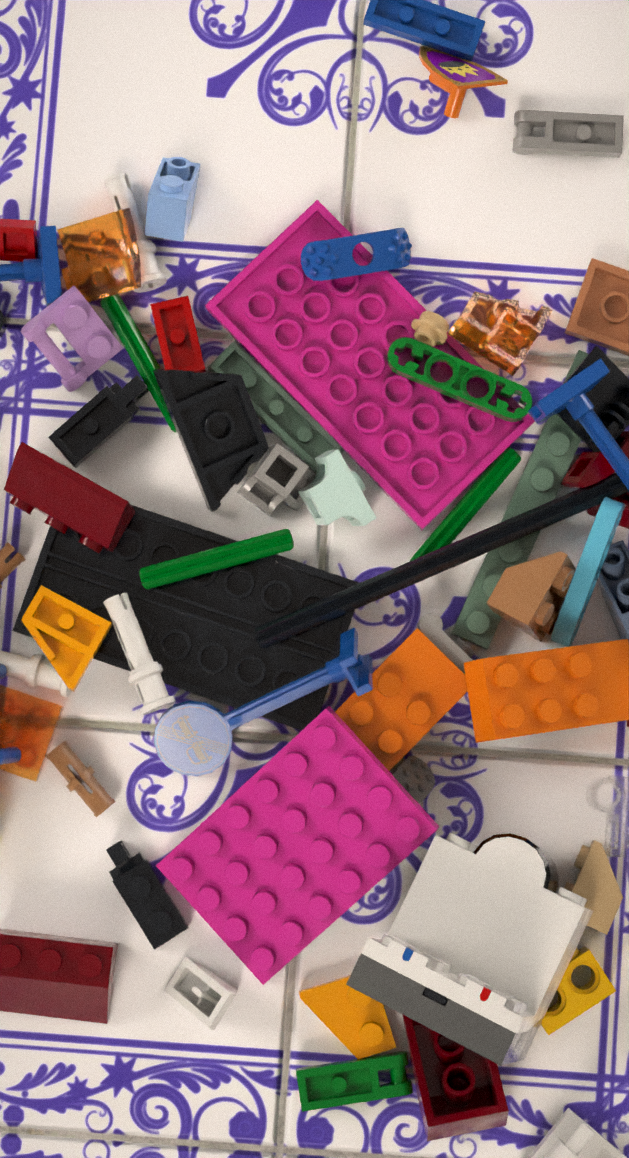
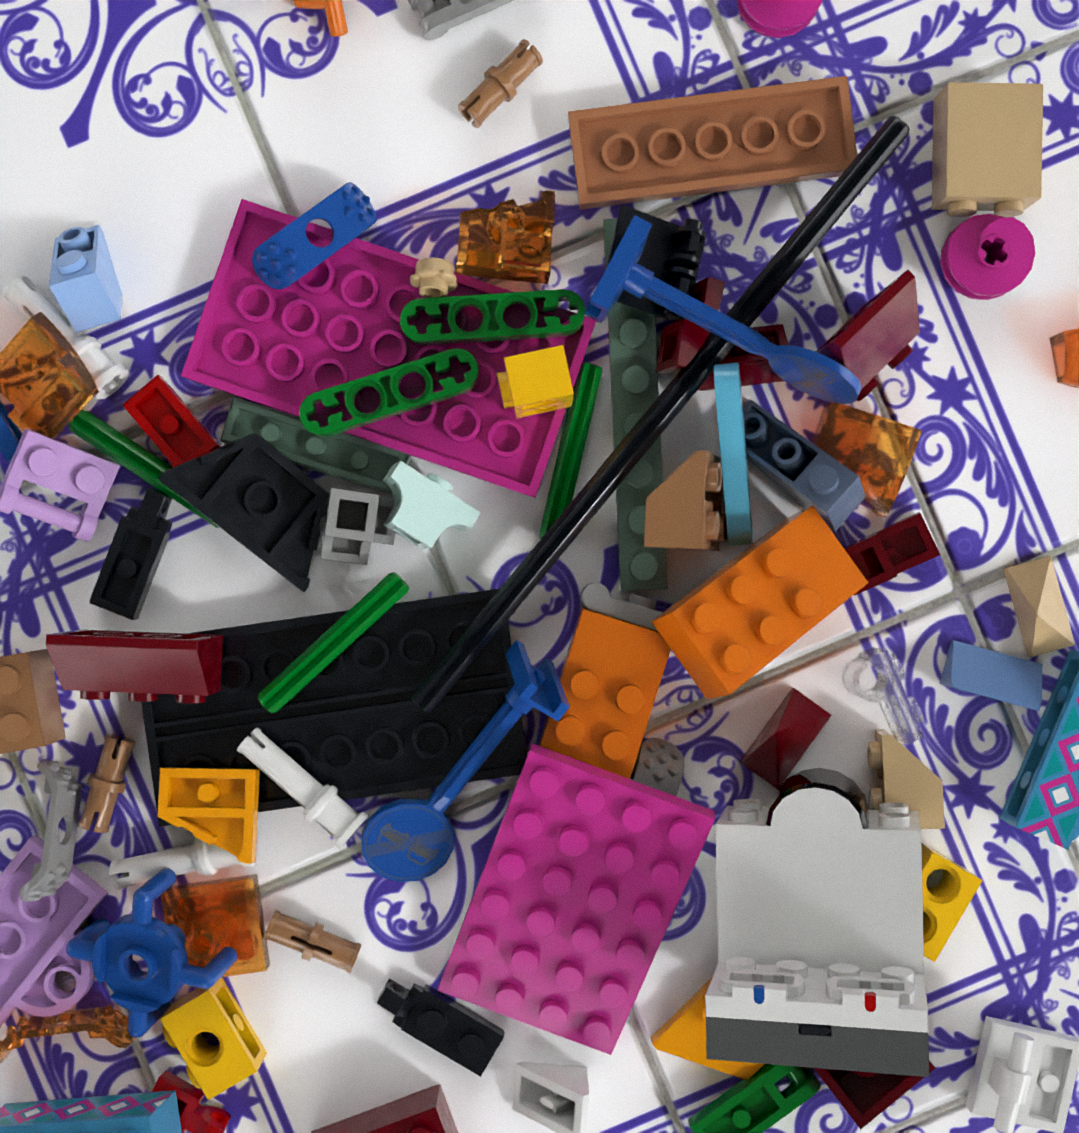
camera: 30 degrees left, 5 degrees up
(355, 389) = (387, 385): none -> green beam
(467, 443) = (536, 382): none -> yellow brick
(521, 809) = (785, 738): none -> dark red slope
(552, 212) = (500, 83): none -> medium nougat pin

